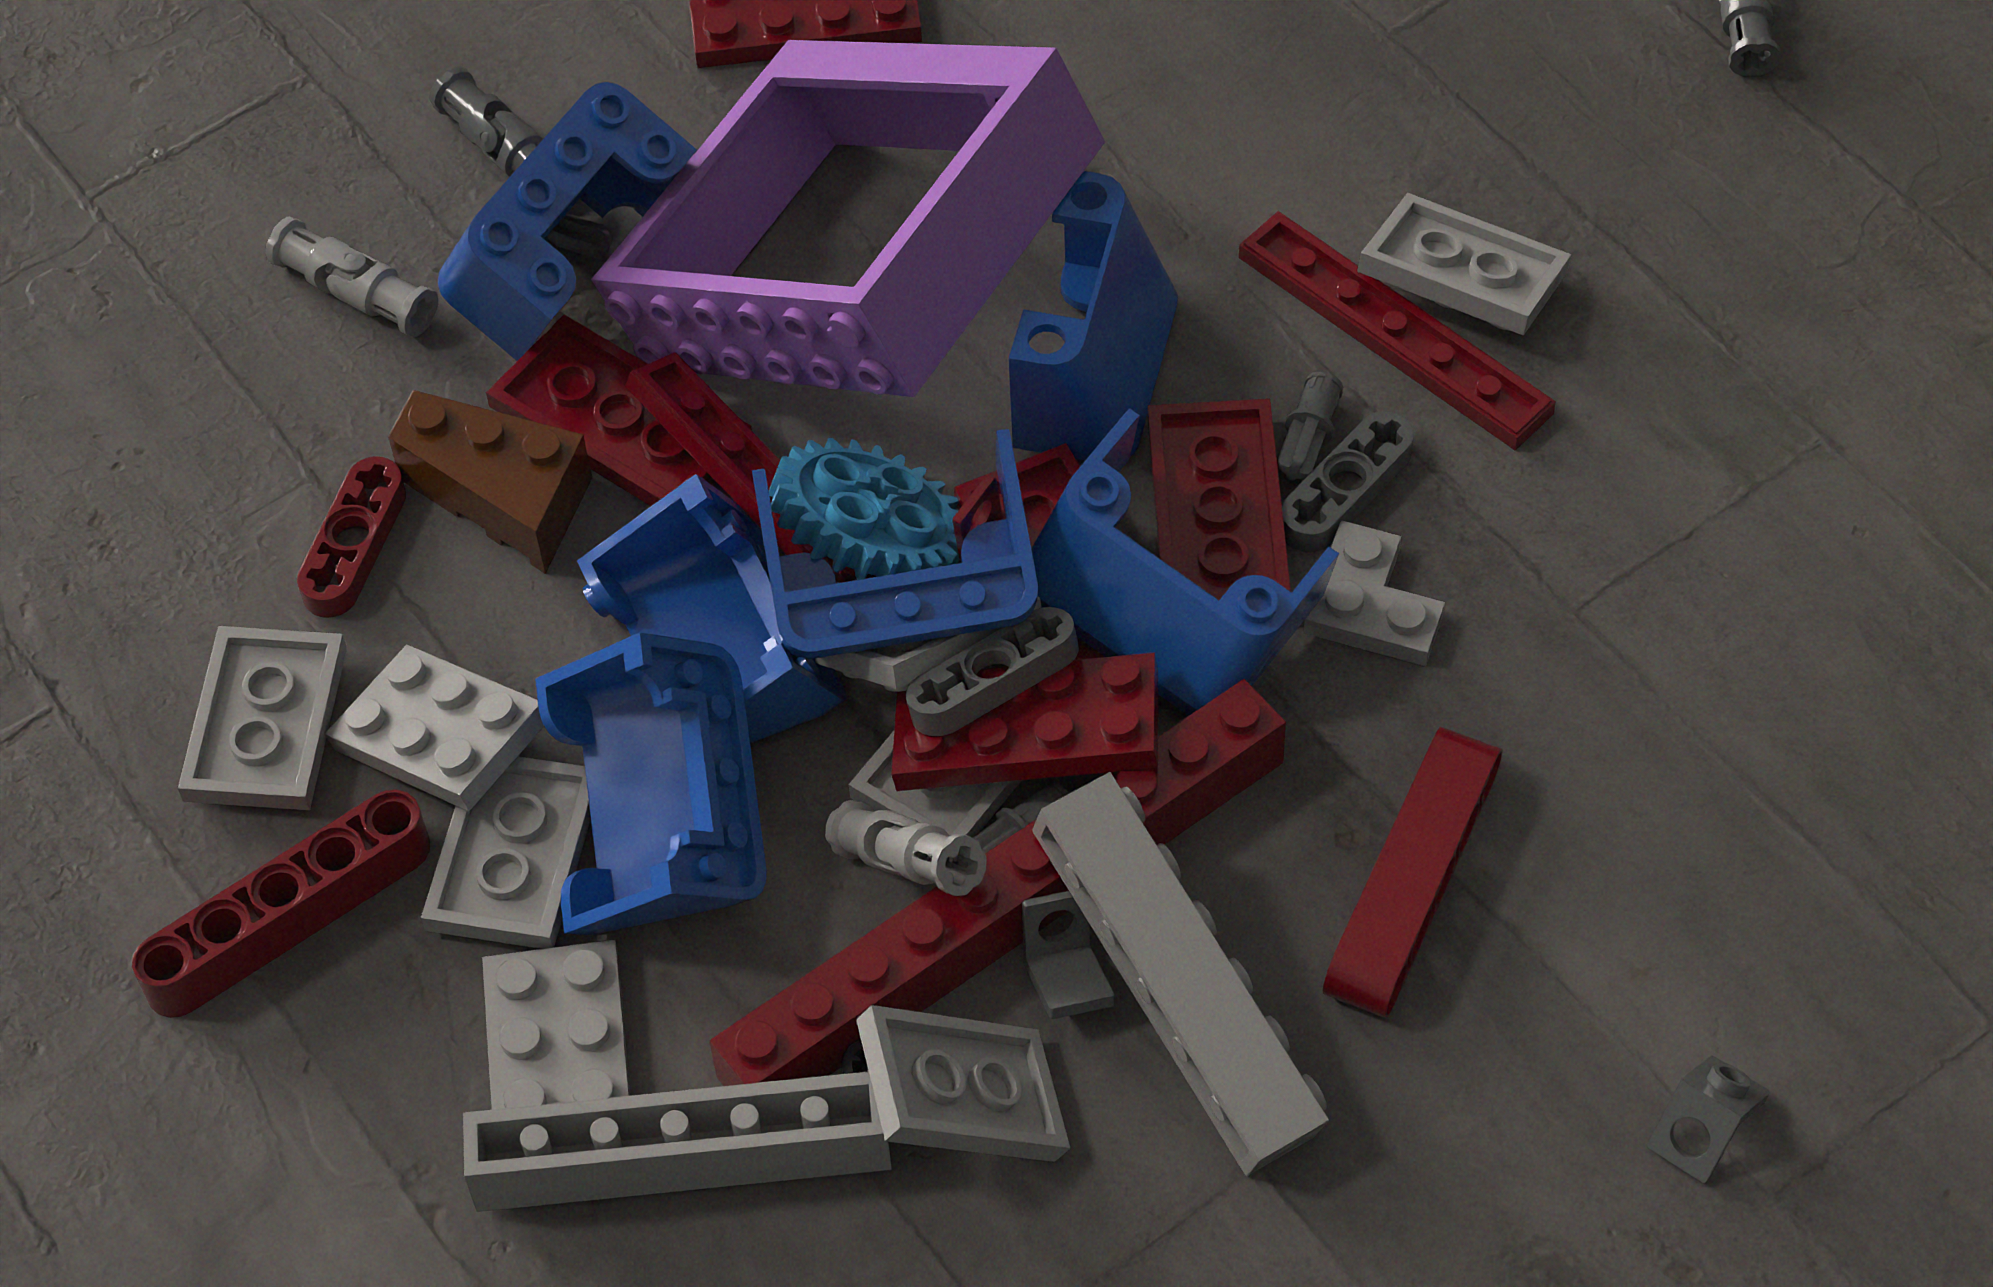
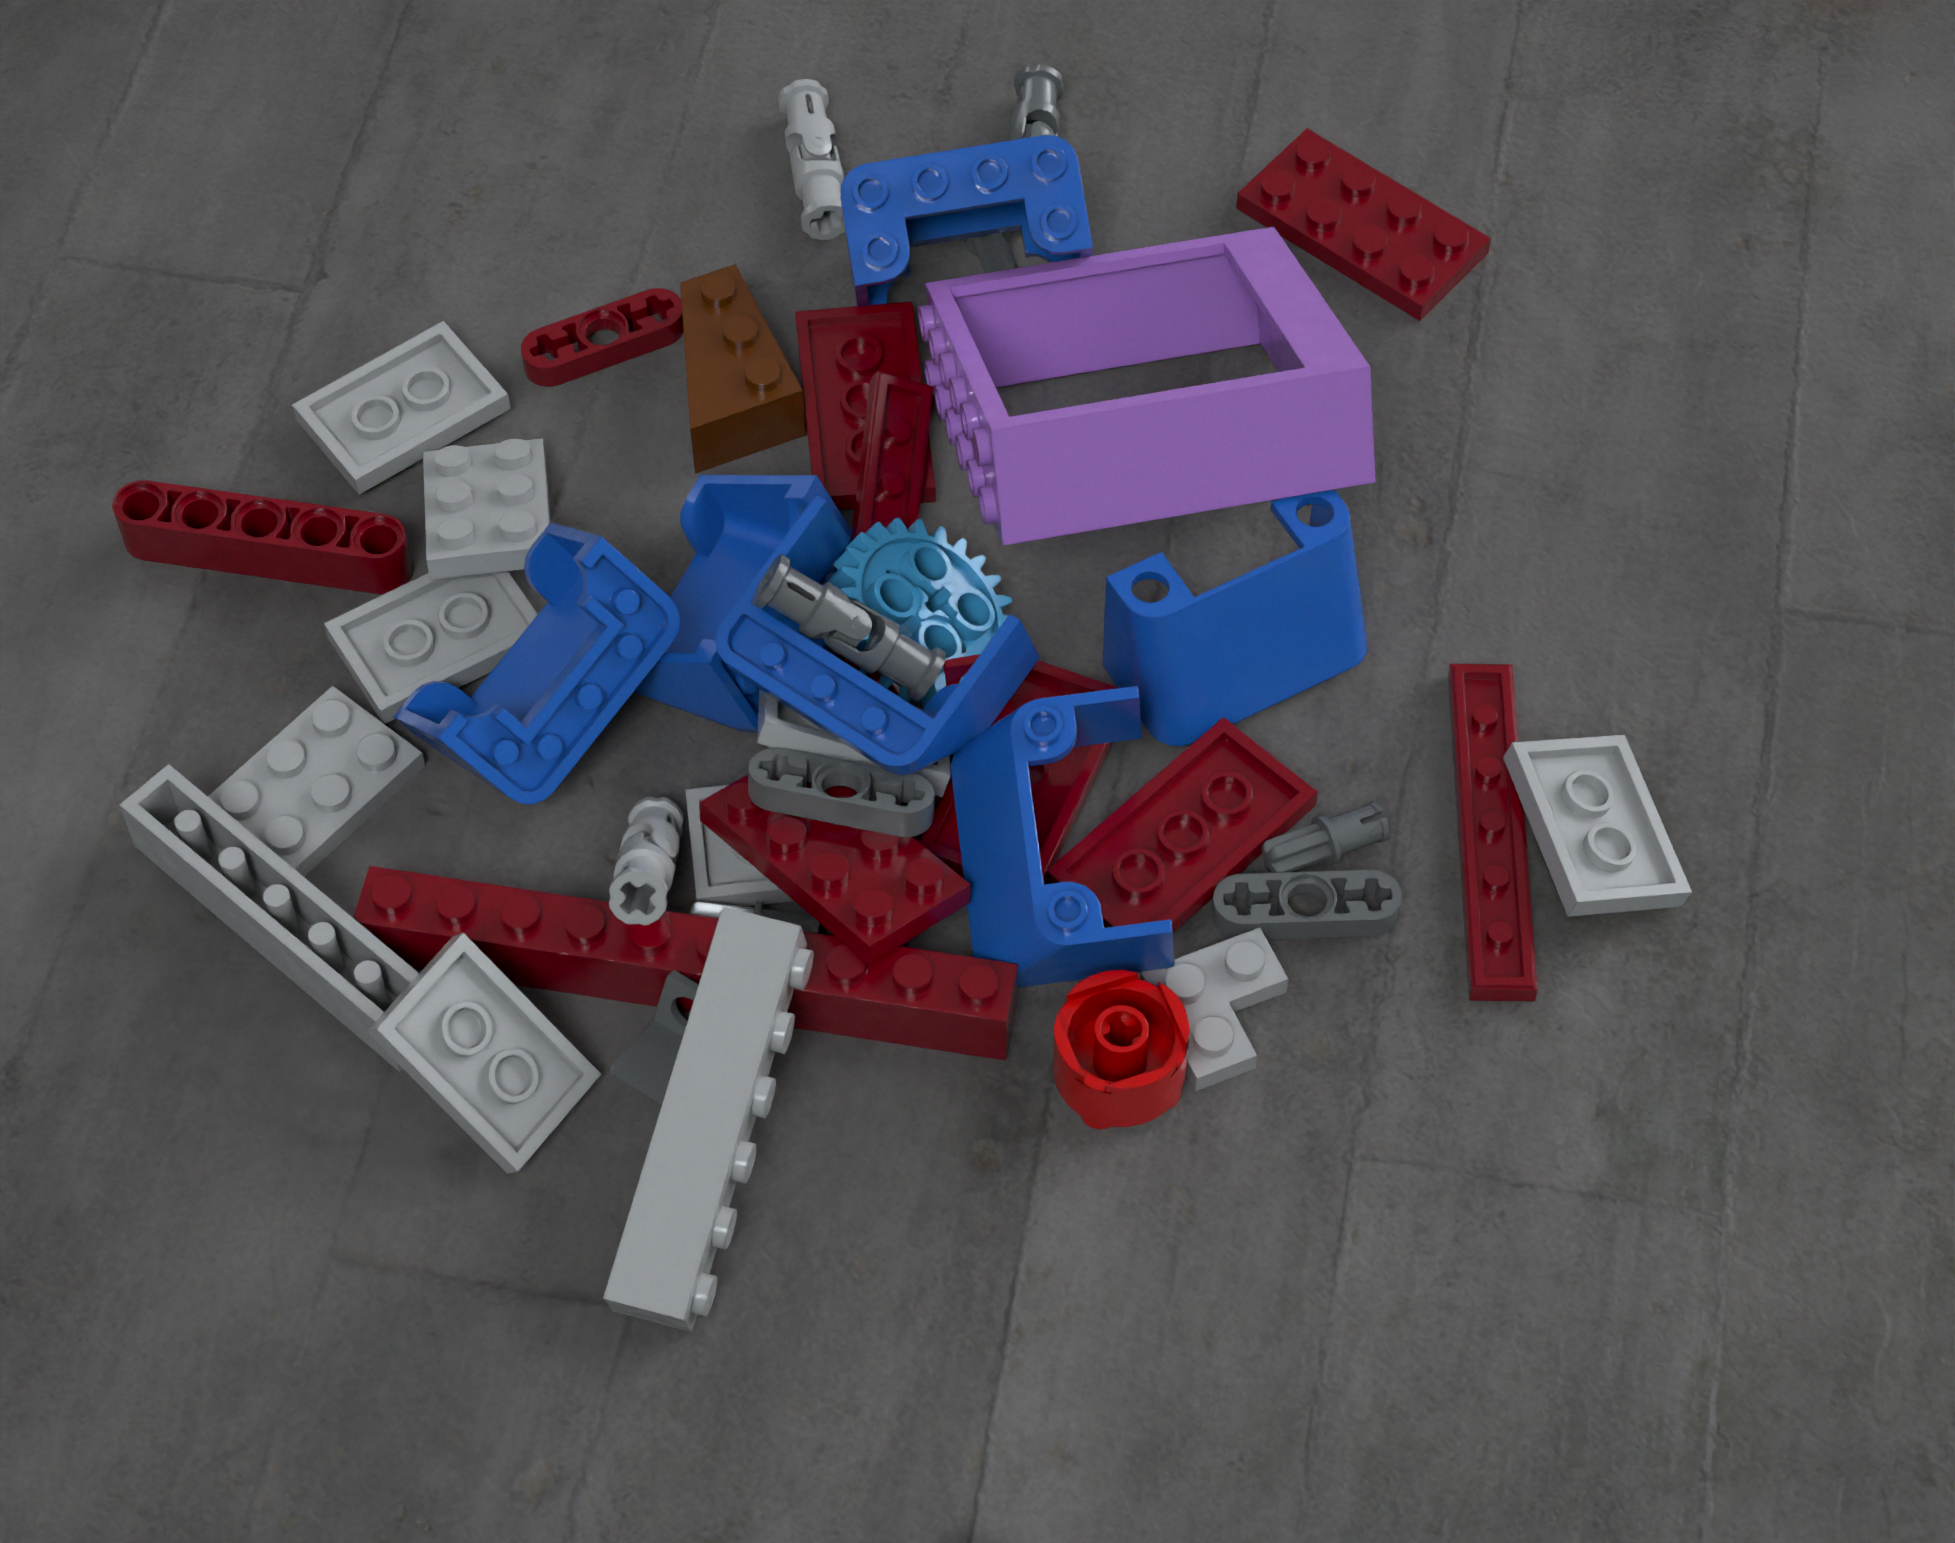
camera: 45 degrees right, 0 degrees up
(869, 549) = (842, 623): none -> dark grey piece
(1367, 675) = (1120, 1049): none -> red brick
(1412, 872) = (981, 1218): dark red beam -> none

